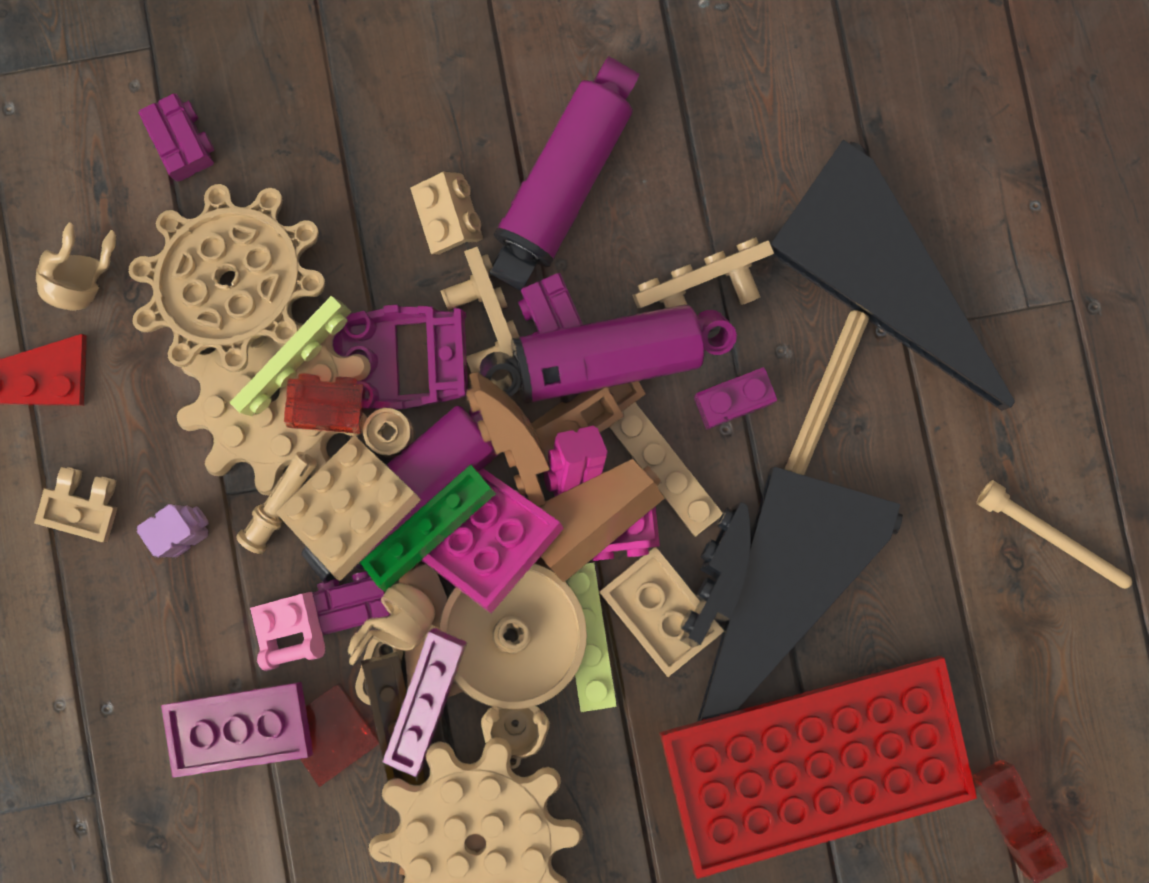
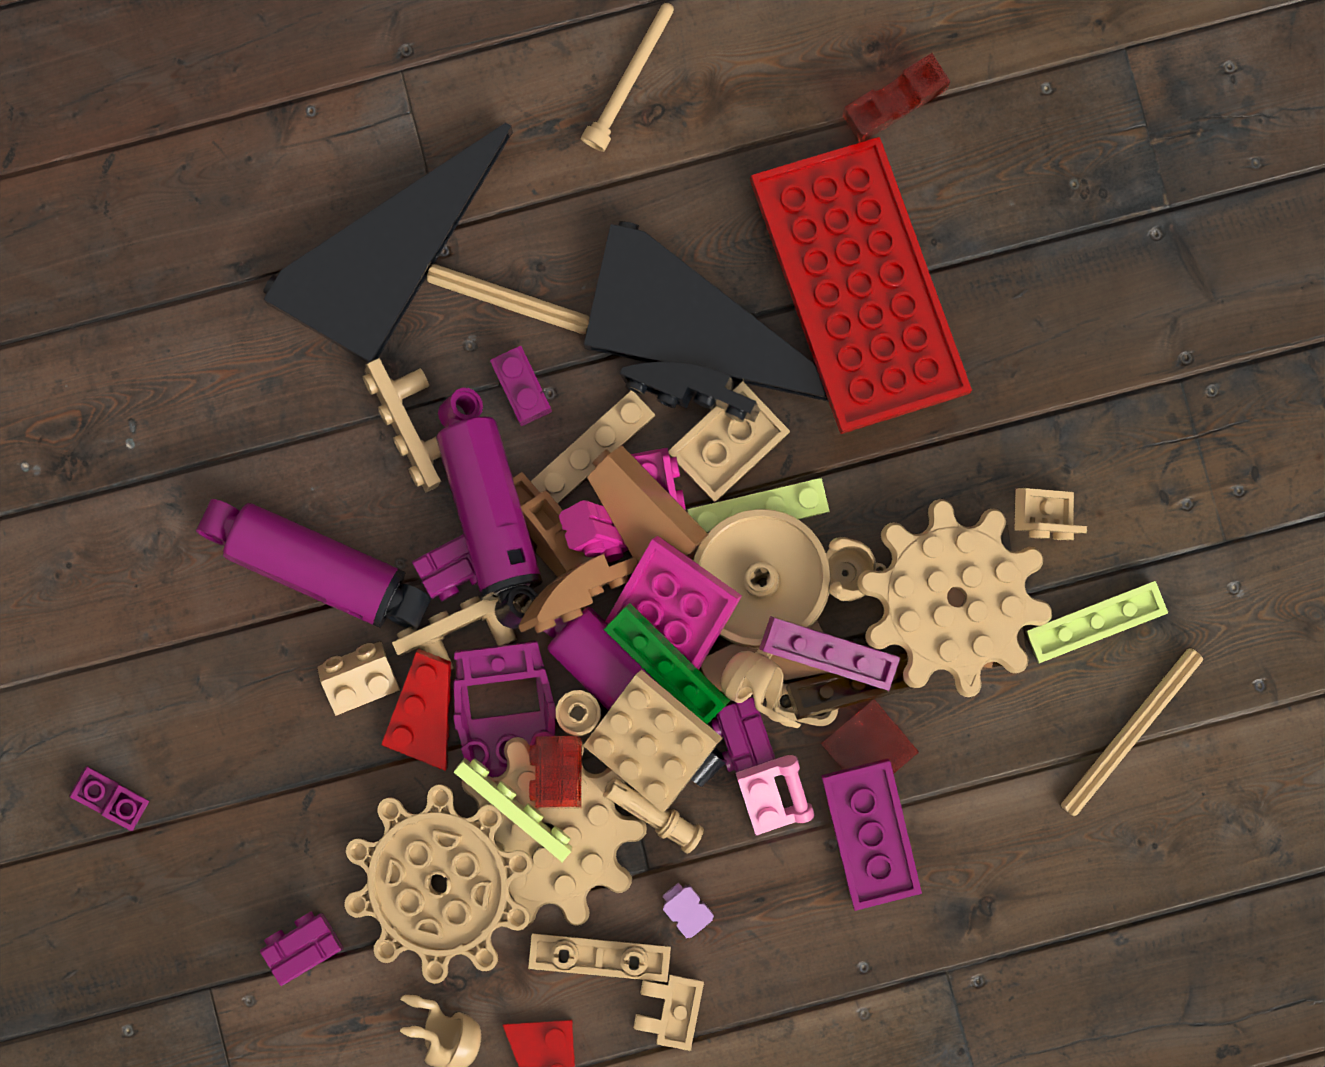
camera: 95 degrees left, 0 degrees up
(139, 437) = (599, 957): none -> tan plate
(405, 273) = (421, 714): none -> red wing

